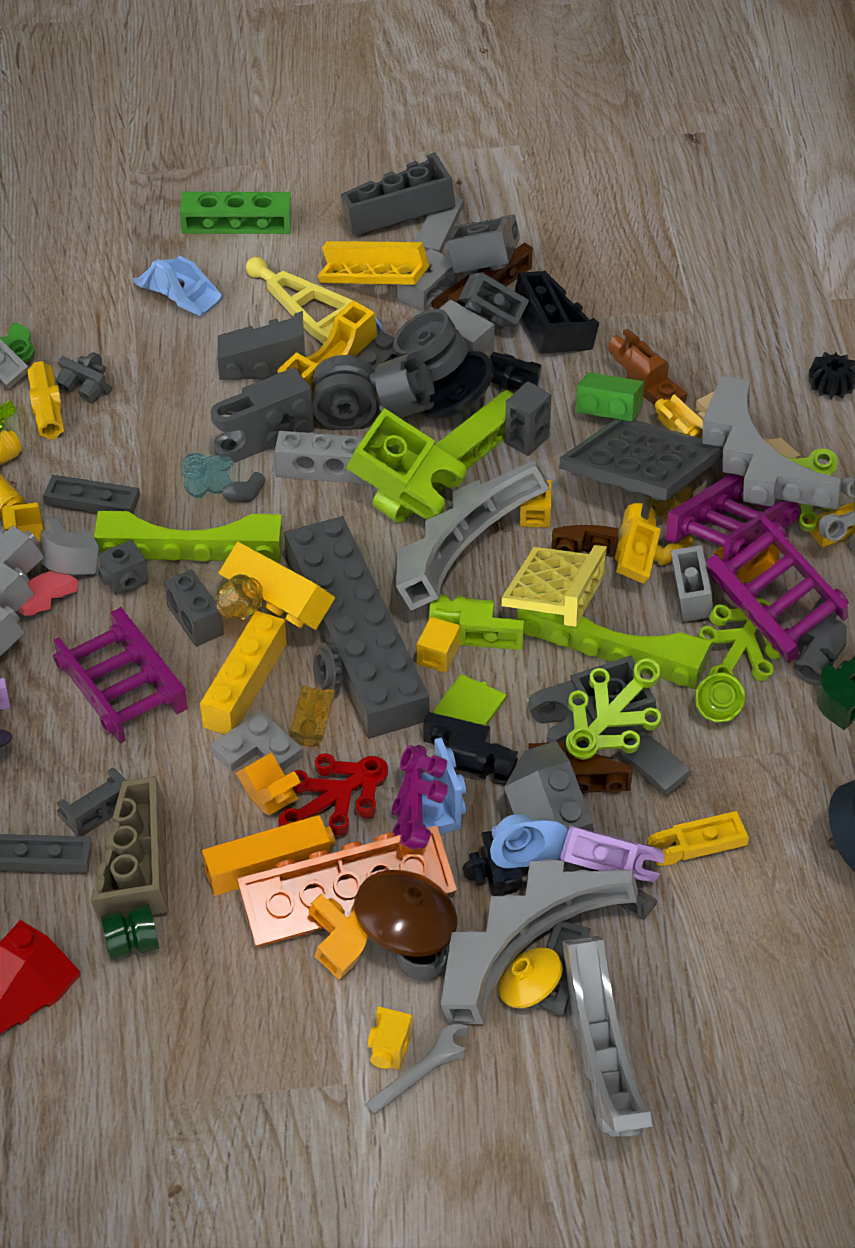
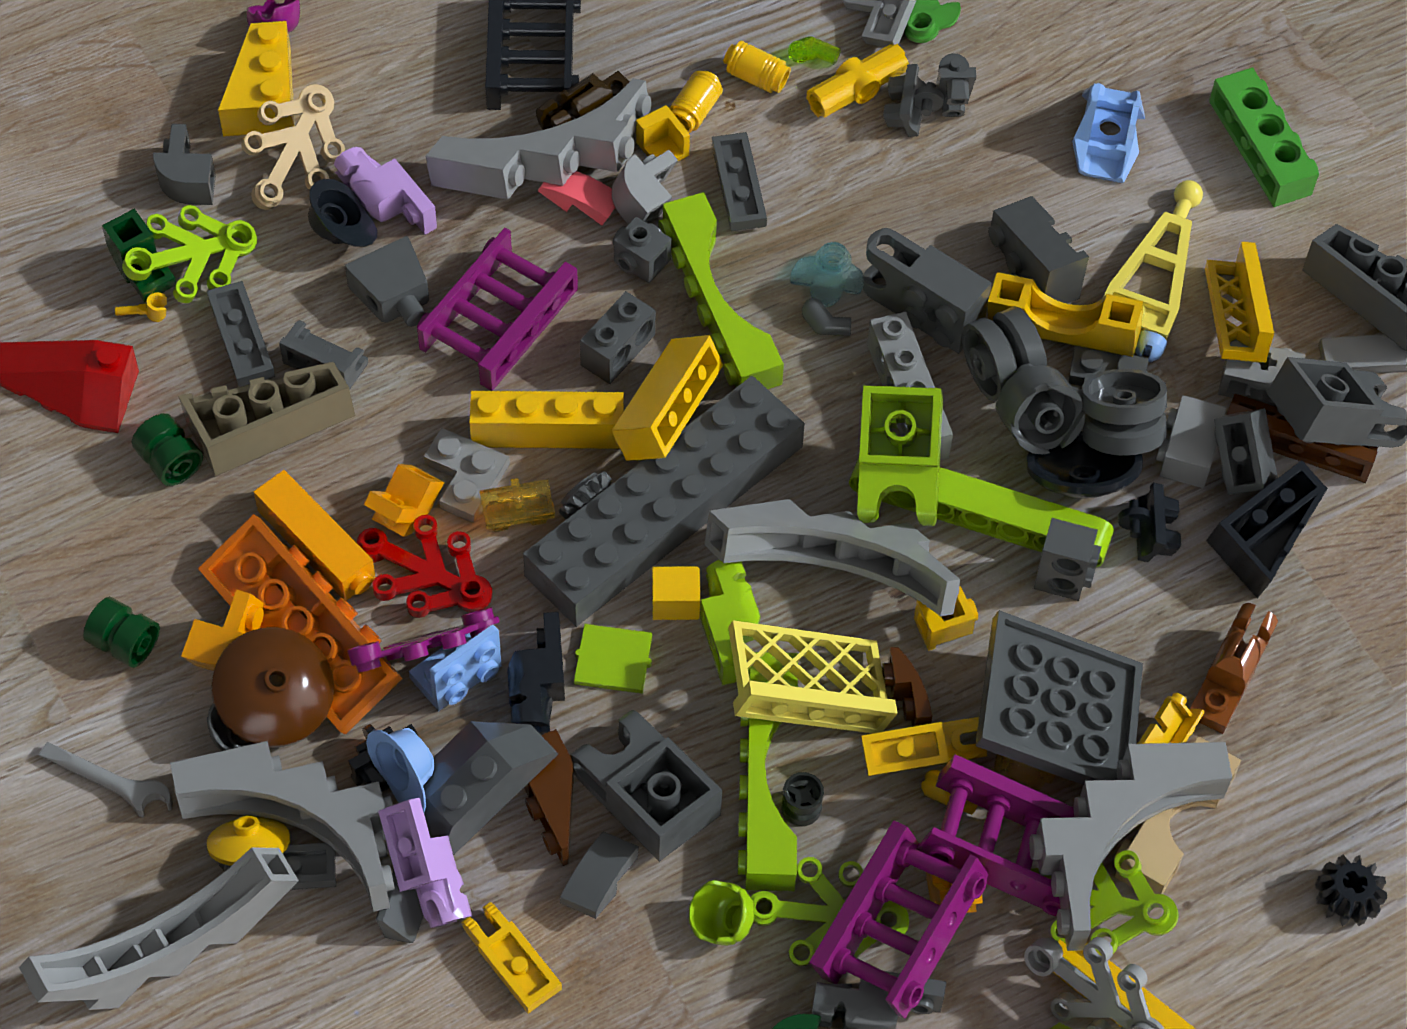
camera: 65 degrees right, 10 degrees up
(54, 735) = (390, 282): none -> dark grey torso
(95, 341) = (956, 83): none -> dark grey hips
(239, 597) = (625, 367): clear yellow head -> none
(297, 1010) = (121, 632): none -> dark green wheel
(390, 1038) = (124, 735): yellow brick -> none
(610, 396) = (1159, 638): bright green brick -> none
(611, 714) = (619, 792): lime plant -> none
(645, 621) = (802, 790): none -> pearl dark grey wheel
(692, 583) = (868, 824): light grey brick -> none

